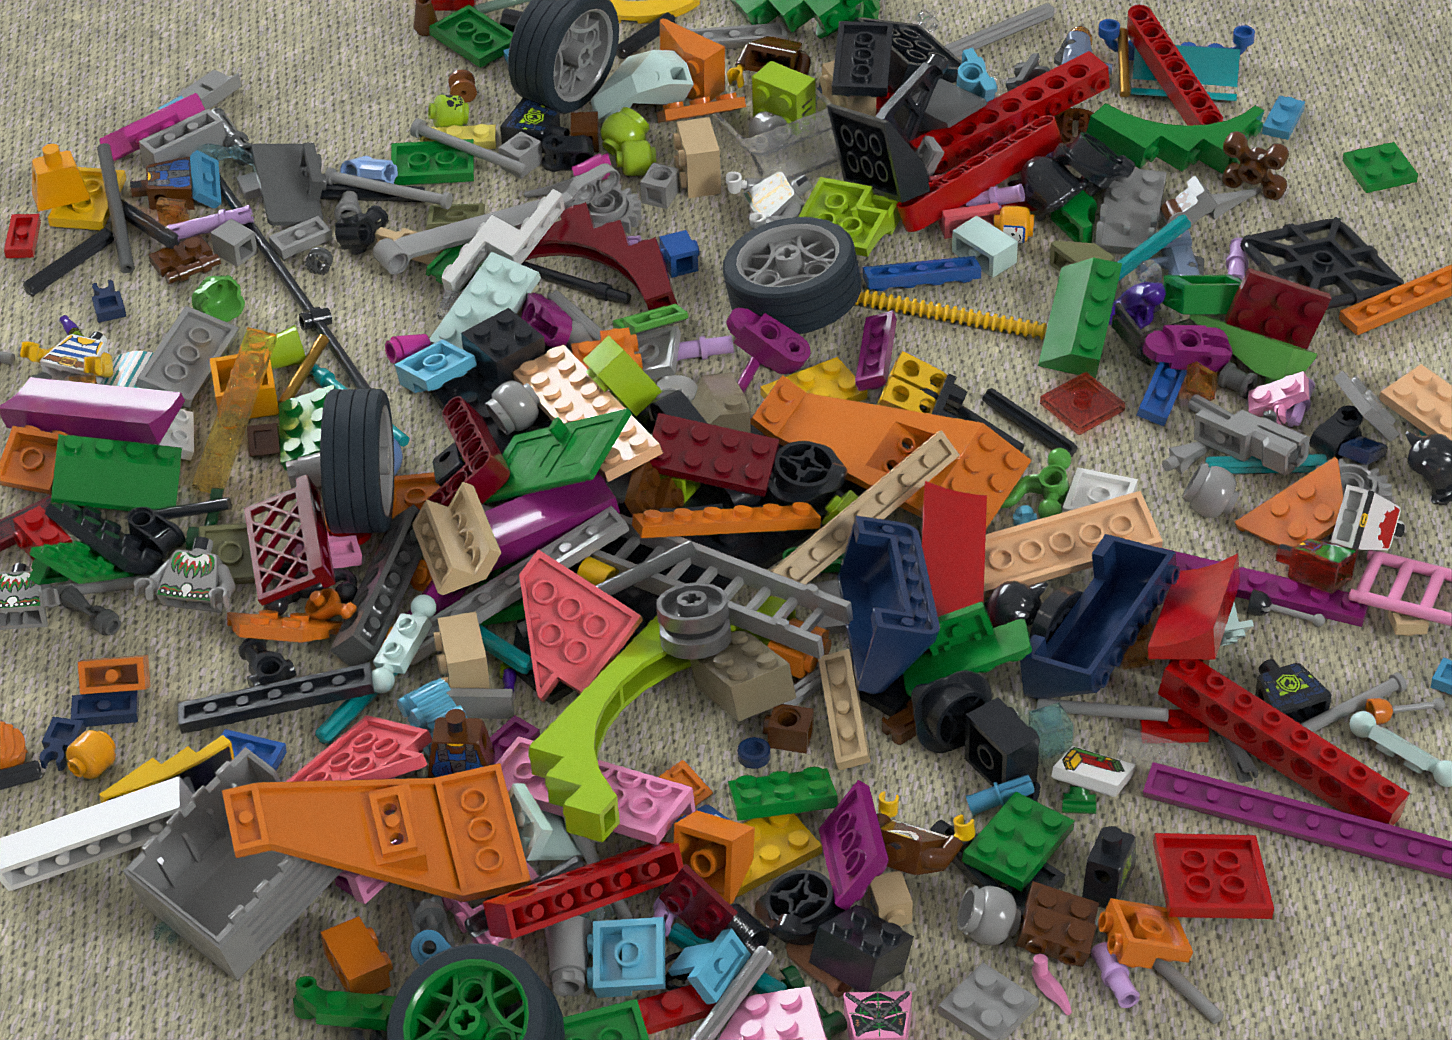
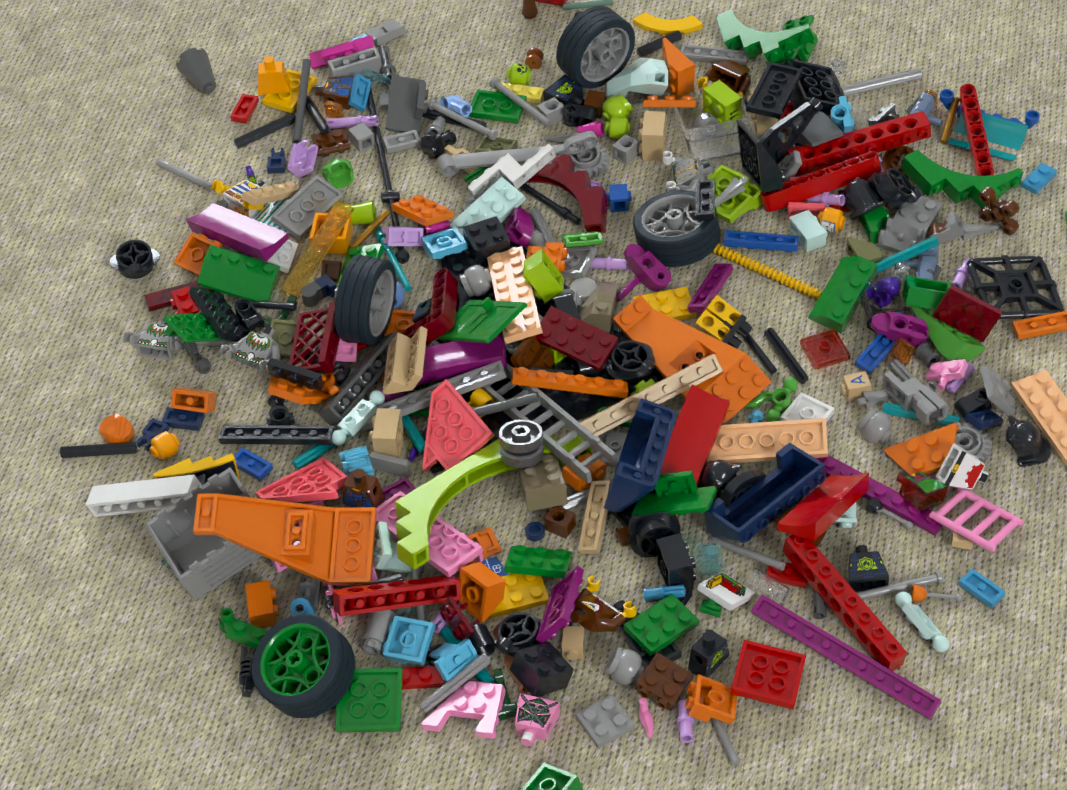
camera: 20 degrees right, 5 degrees up
(123, 345) = (270, 193): none -> tan plate
(151, 290) = (302, 159): none -> lavender hinge
(256, 473) = (318, 290): none -> leg
(276, 598) = (295, 374): none -> black plate
(315, 265) = (406, 159): dark grey bush -> none
(364, 367) = (403, 236): none -> lavender hinge
(379, 326) = (422, 210): none -> orange plate
(472, 35) = (551, 22): green plate -> none
(830, 222) = (705, 200): none -> black plate
(856, 205) = (734, 188): none -> light grey piece
(1153, 441) = (854, 385): none -> tan brick

